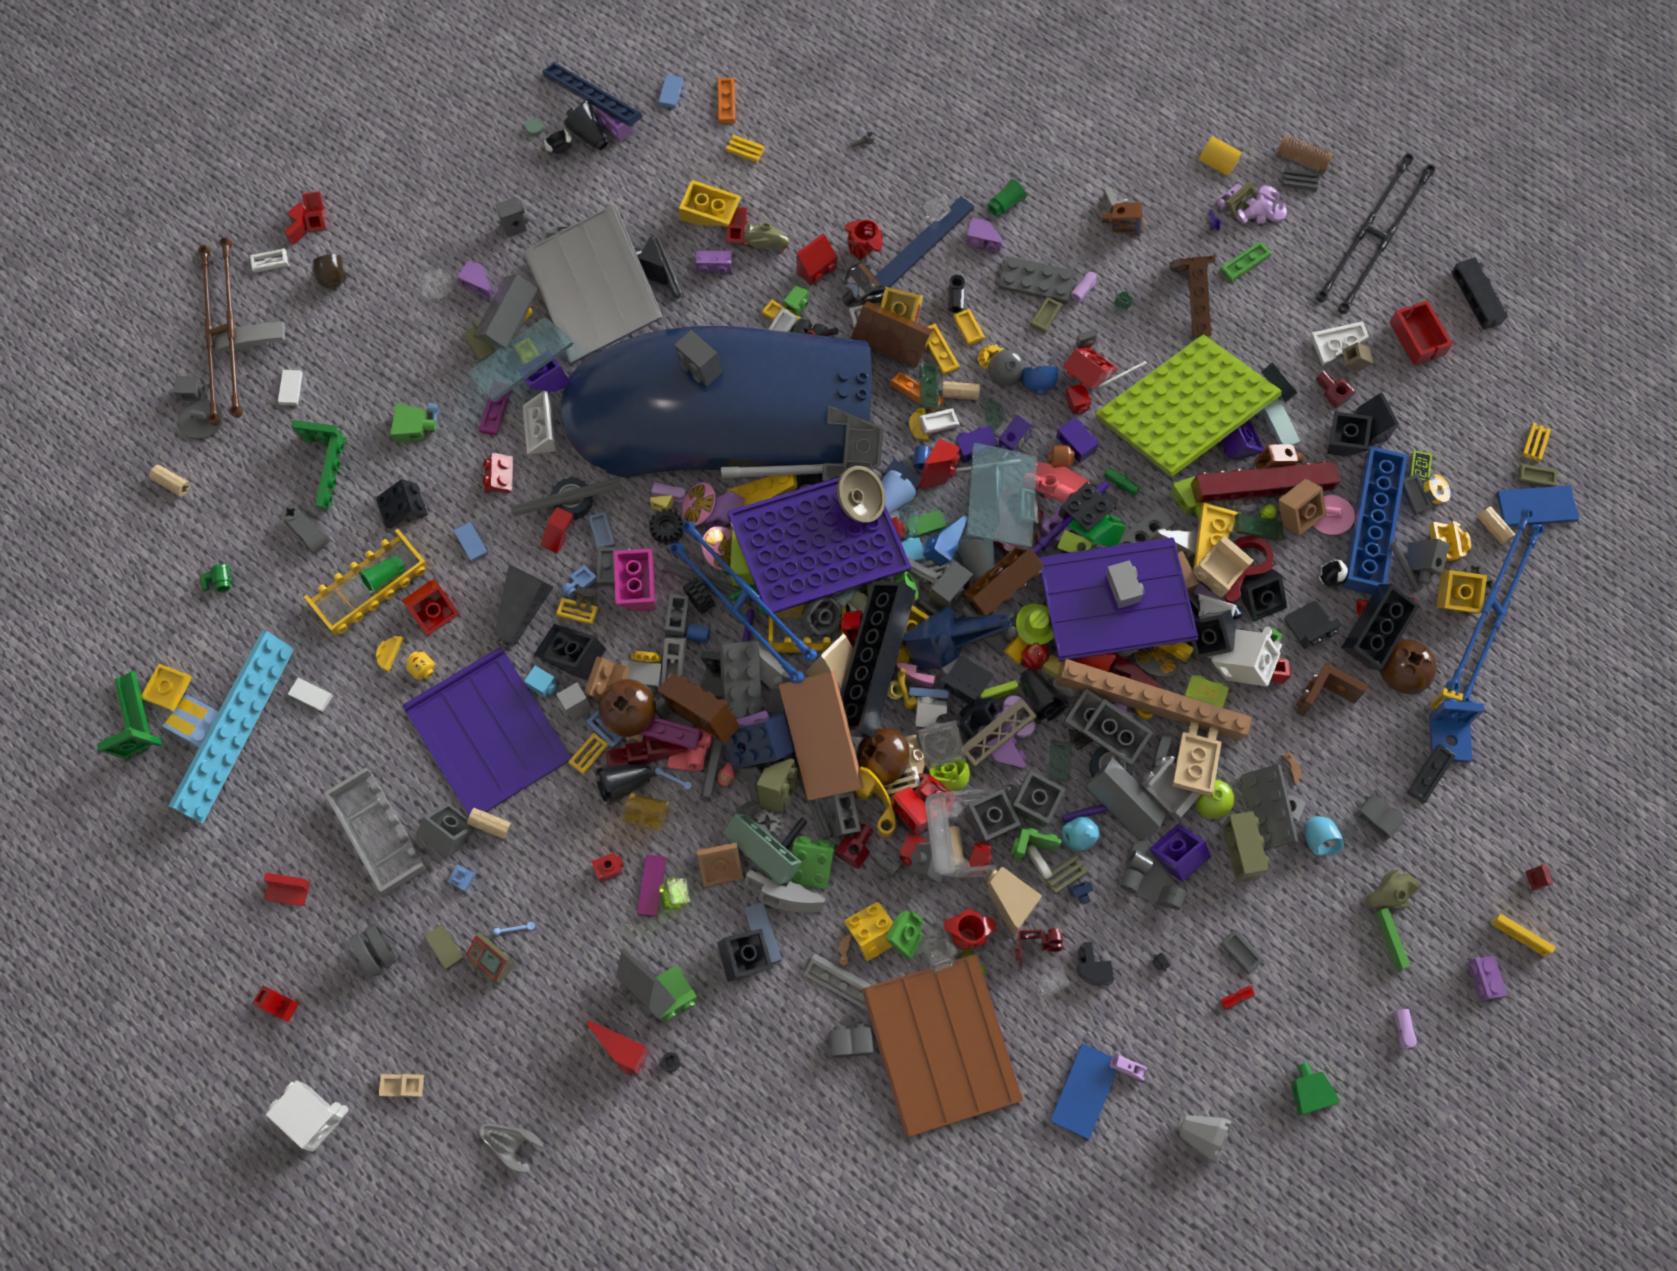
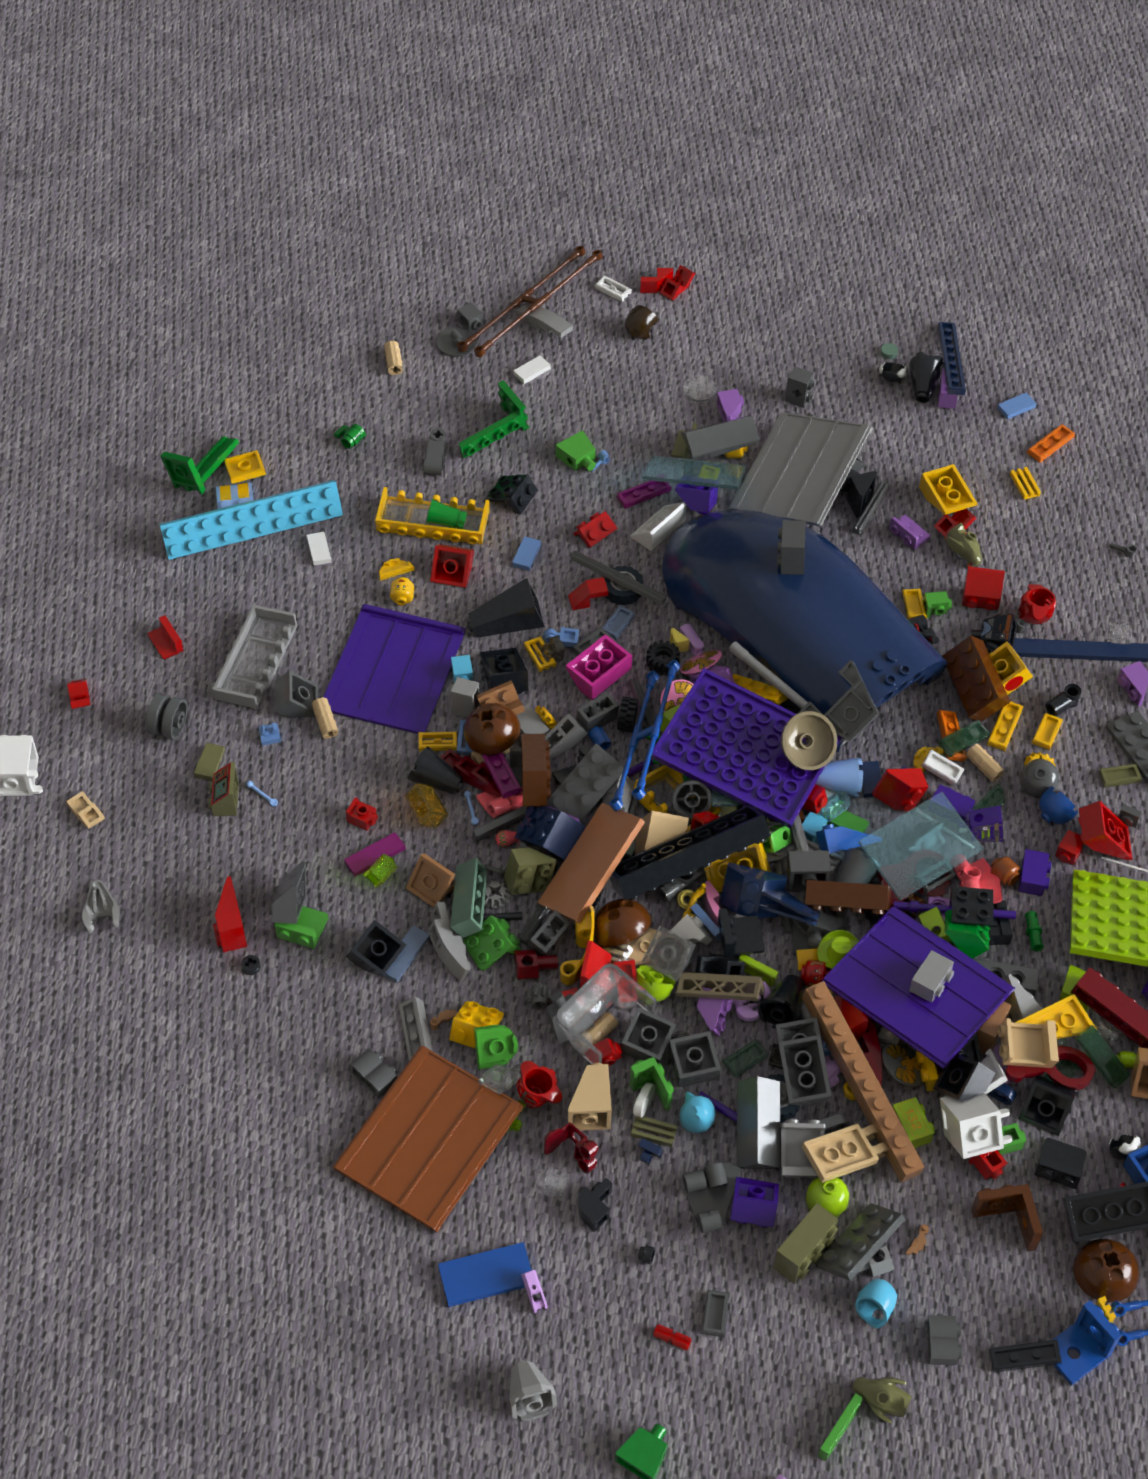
camera: 50 degrees right, 15 degrees down
(783, 321) = (909, 607): white tile -> none

